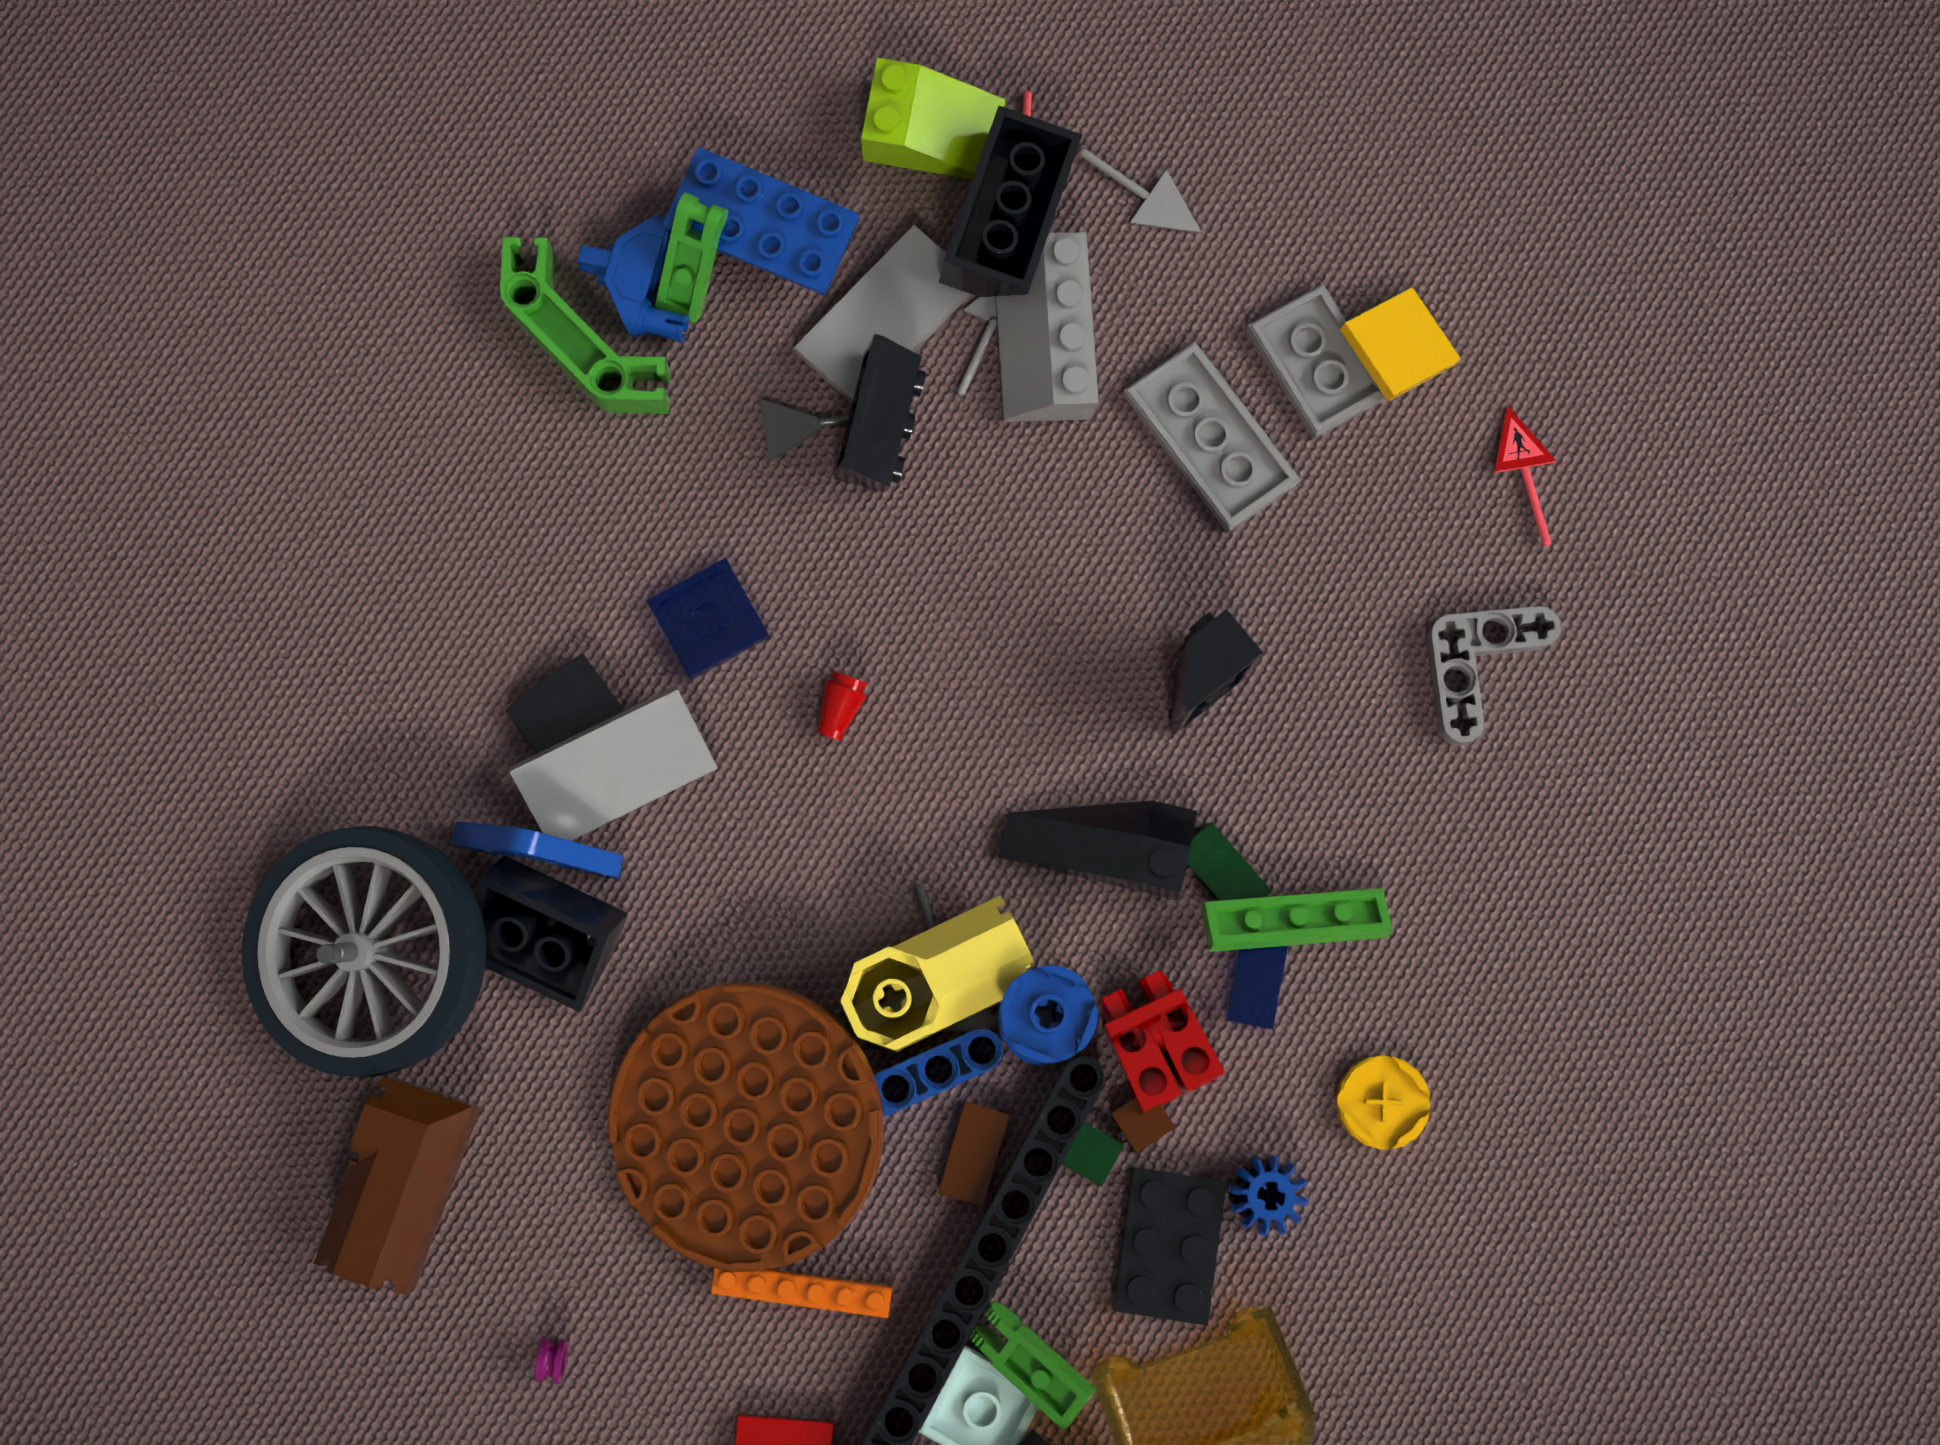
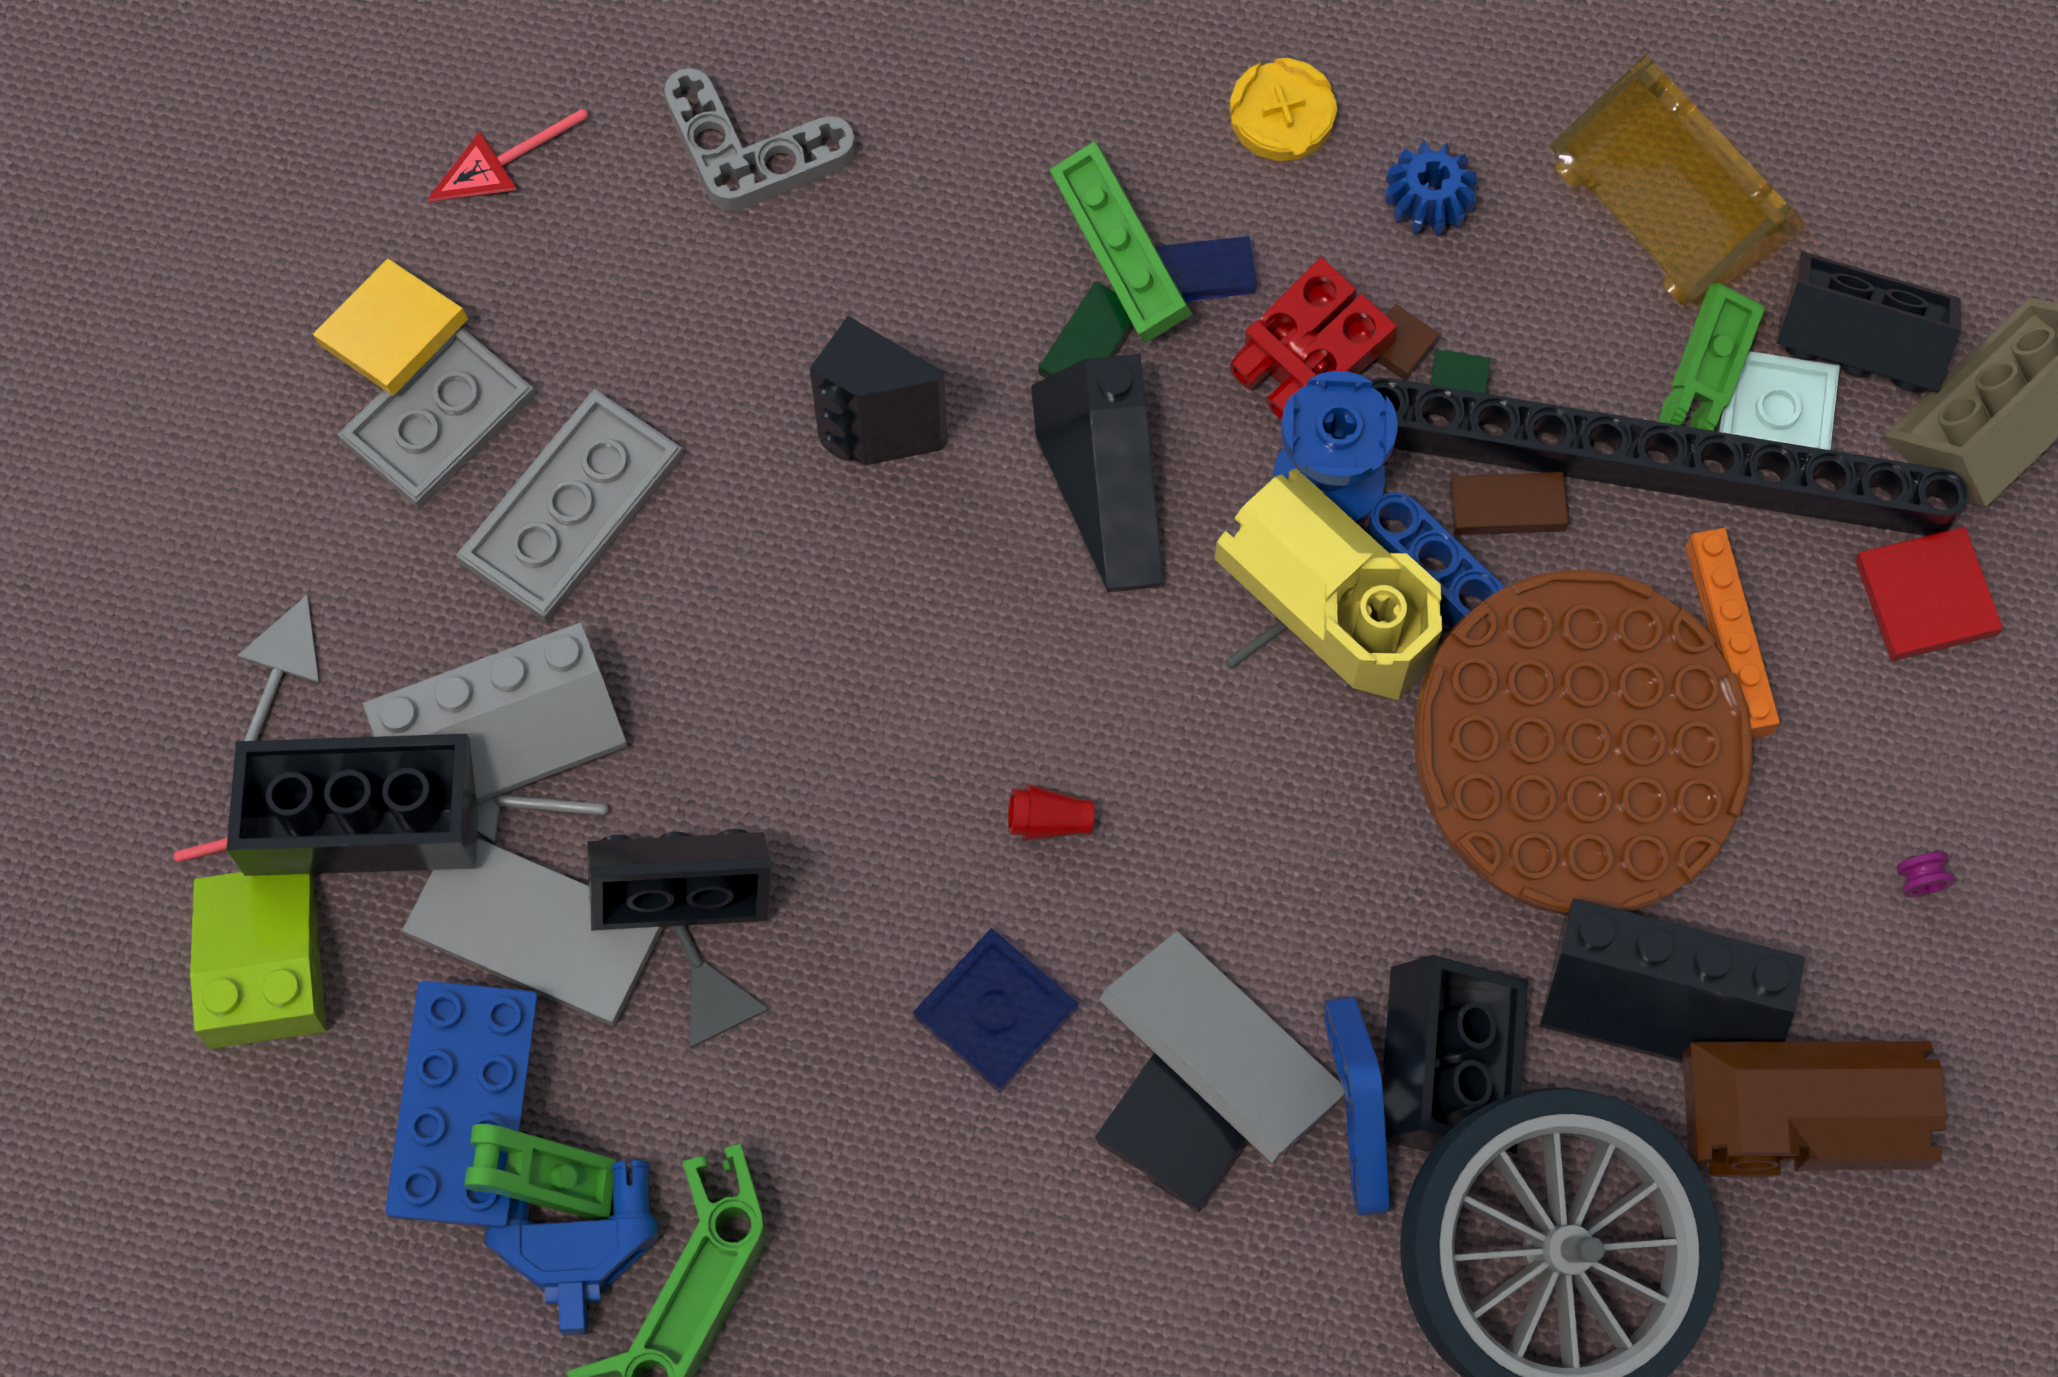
camera: 105 degrees left, 10 degrees down
(535, 1120) = (1665, 984): none -> black slope
(1169, 1246) = (1523, 275): black plate -> none

